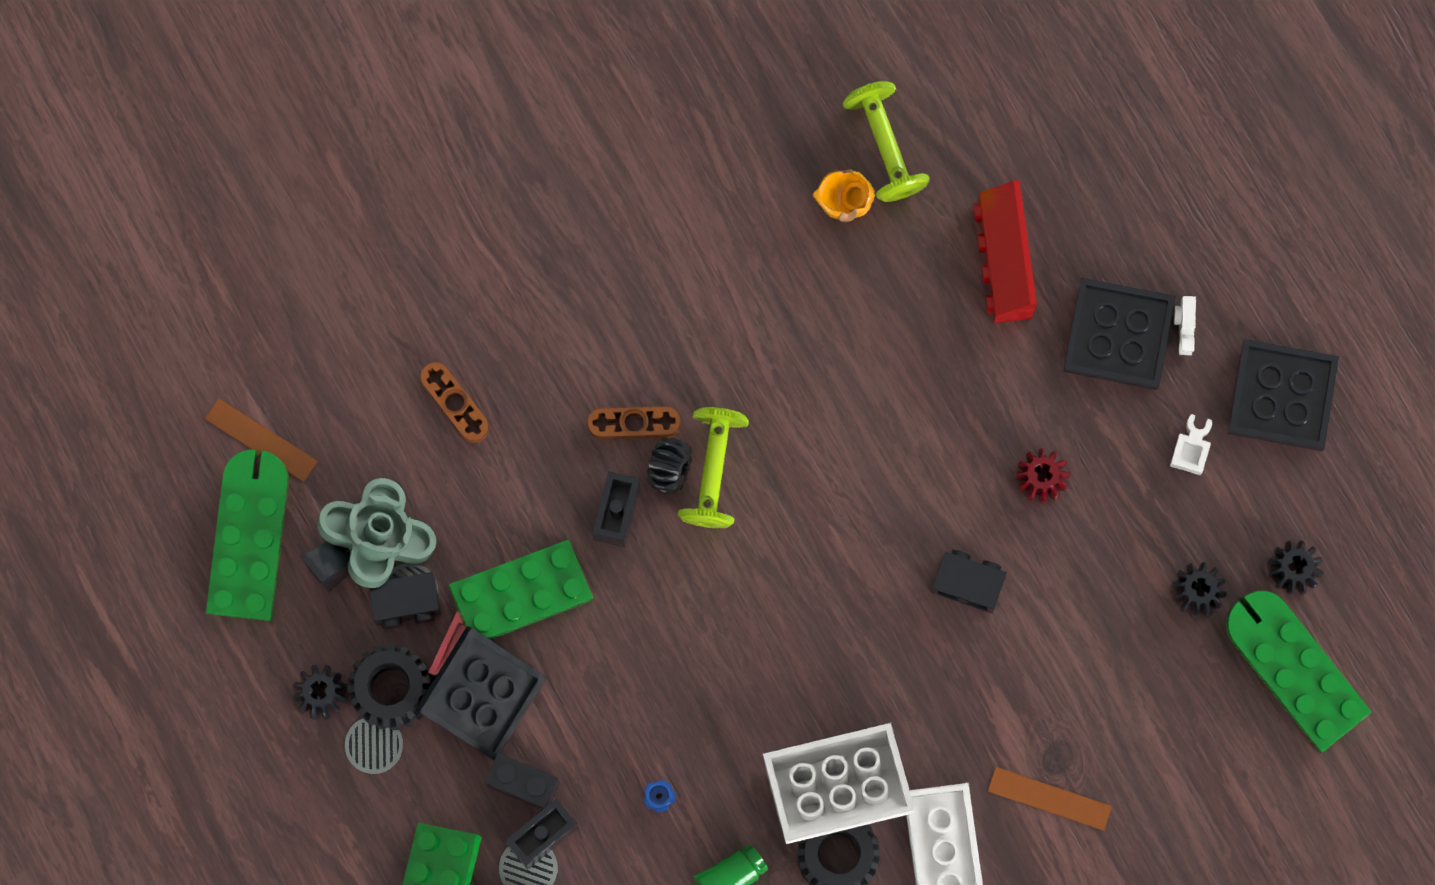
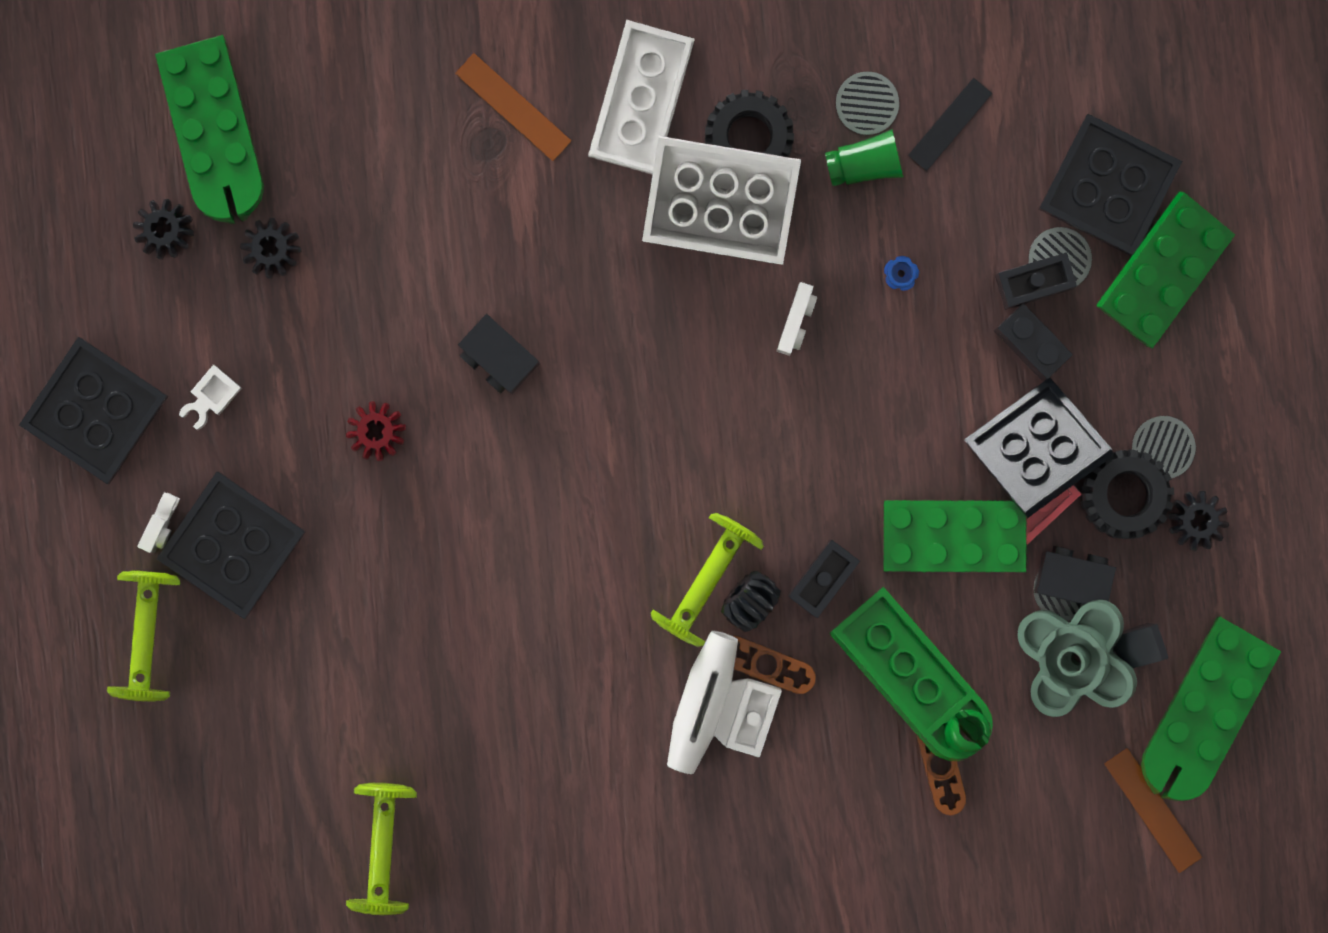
camera: 160 degrees left, 10 degrees up
(506, 461) = (915, 678): none -> green plate
(659, 369) = (718, 707): none -> white plate
(732, 730) = (802, 305): none -> white plate
(845, 195) = (448, 810): light orange hair -> none
(1006, 253) = (310, 676): red slope -> none
(1156, 228) = (143, 636): none -> lime hose

